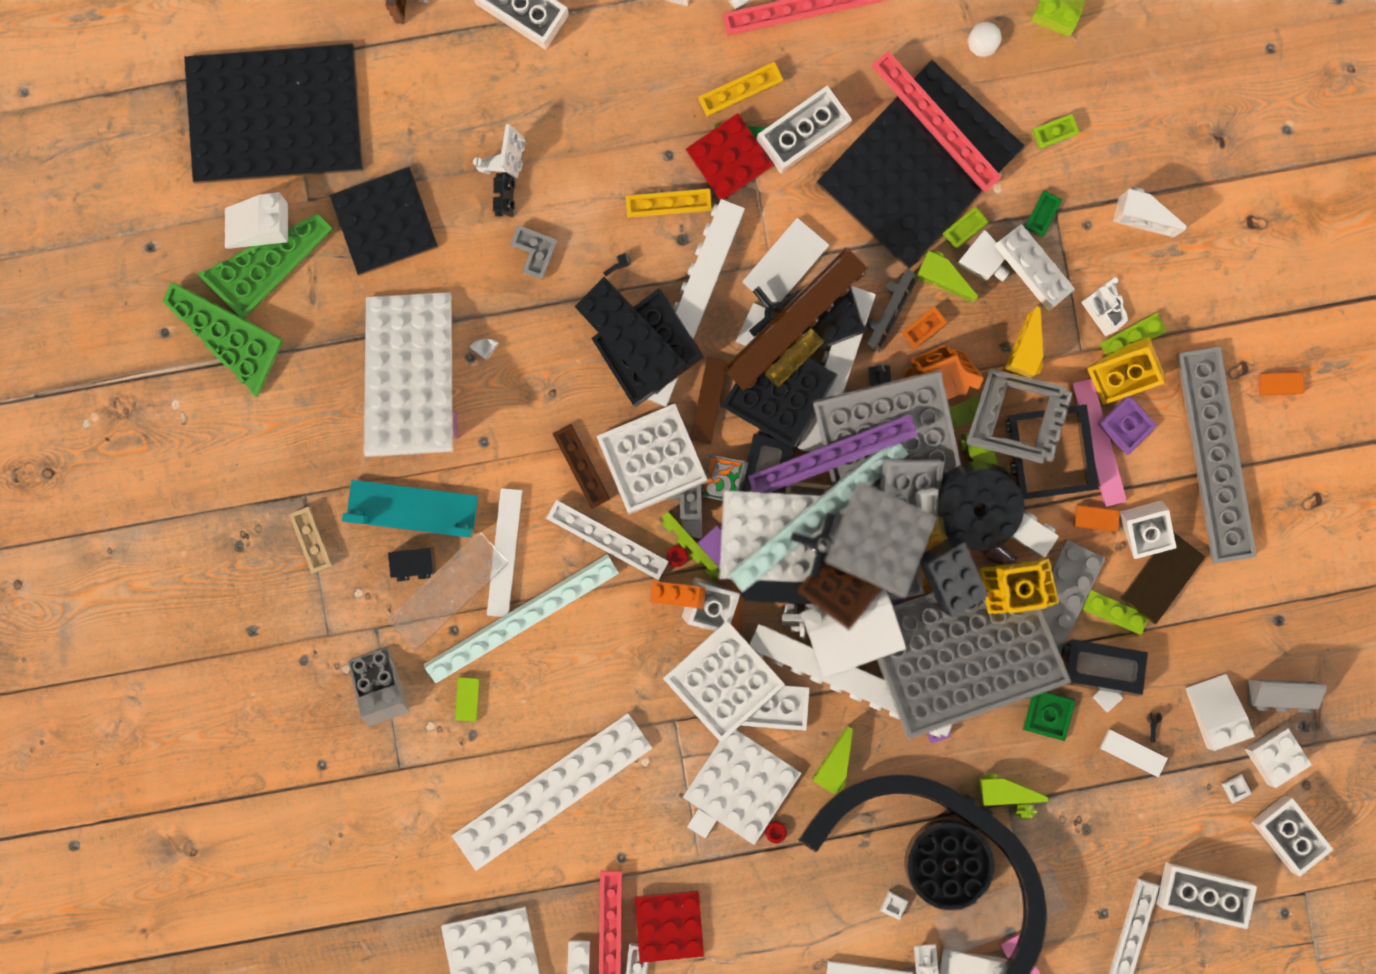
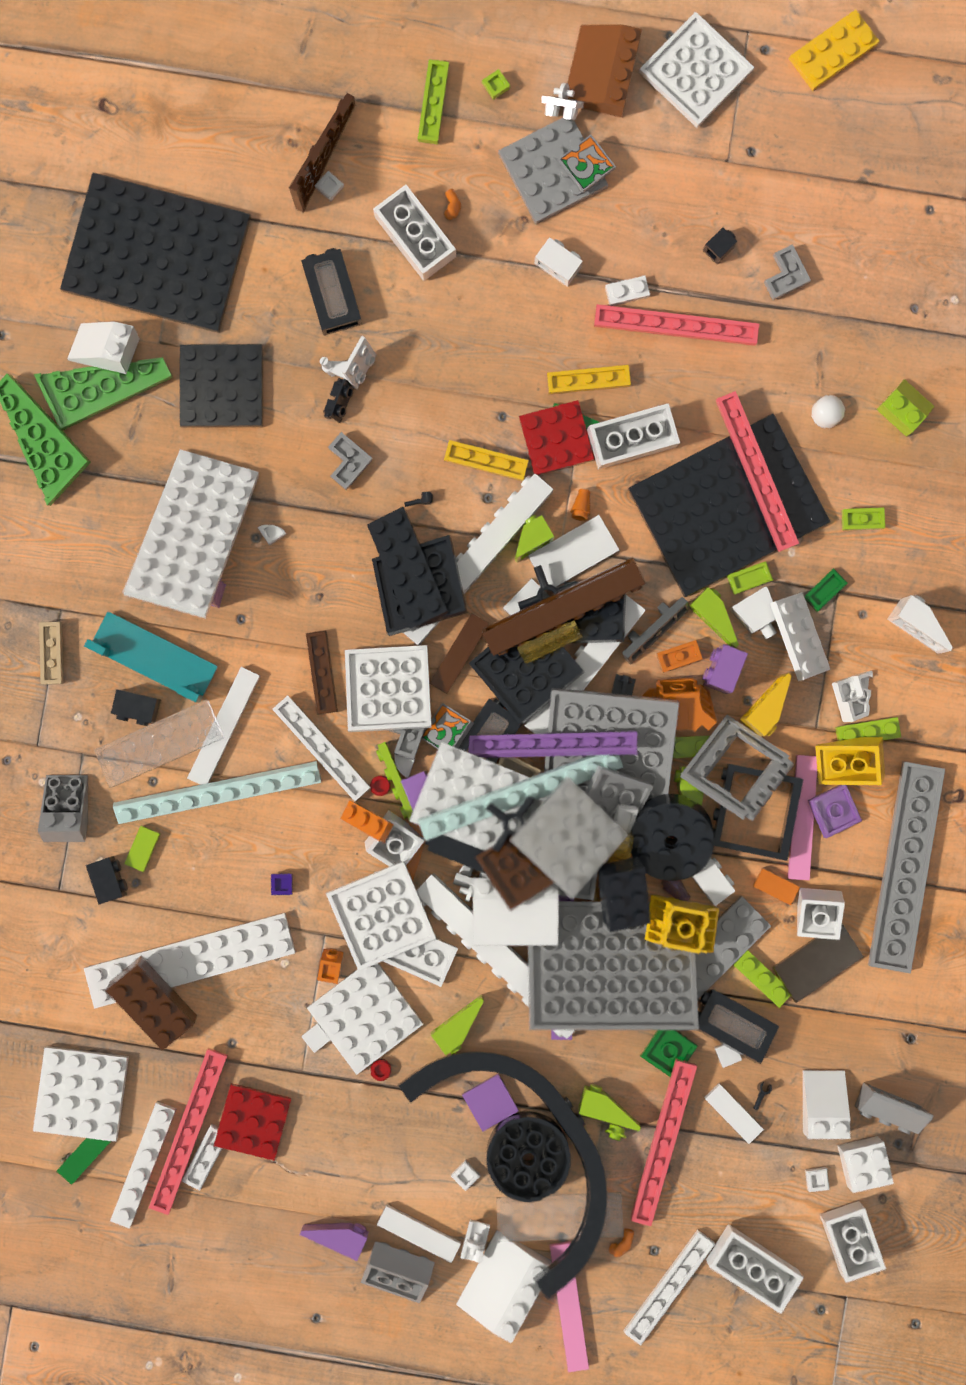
camera: 15 degrees right, 0 degrees up
(444, 741) = (107, 880): none -> black brick
(459, 91) = (331, 291): none -> black piece
(530, 845) = (151, 1003): none -> reddish brown brick
(615, 685) = (282, 884): none -> dark purple plate
(691, 748) = (330, 966): none -> orange bracket
(741, 261) = (533, 537): none -> lime slope
(777, 215) = (581, 506): none -> orange cone
(893, 825) = (490, 1102): none -> medium lavender tile
(972, 324) = (724, 669): none -> medium lavender brick
(1072, 918) = (624, 1246): none -> orange arm
(1075, 804) = (663, 1142): none -> coral plate

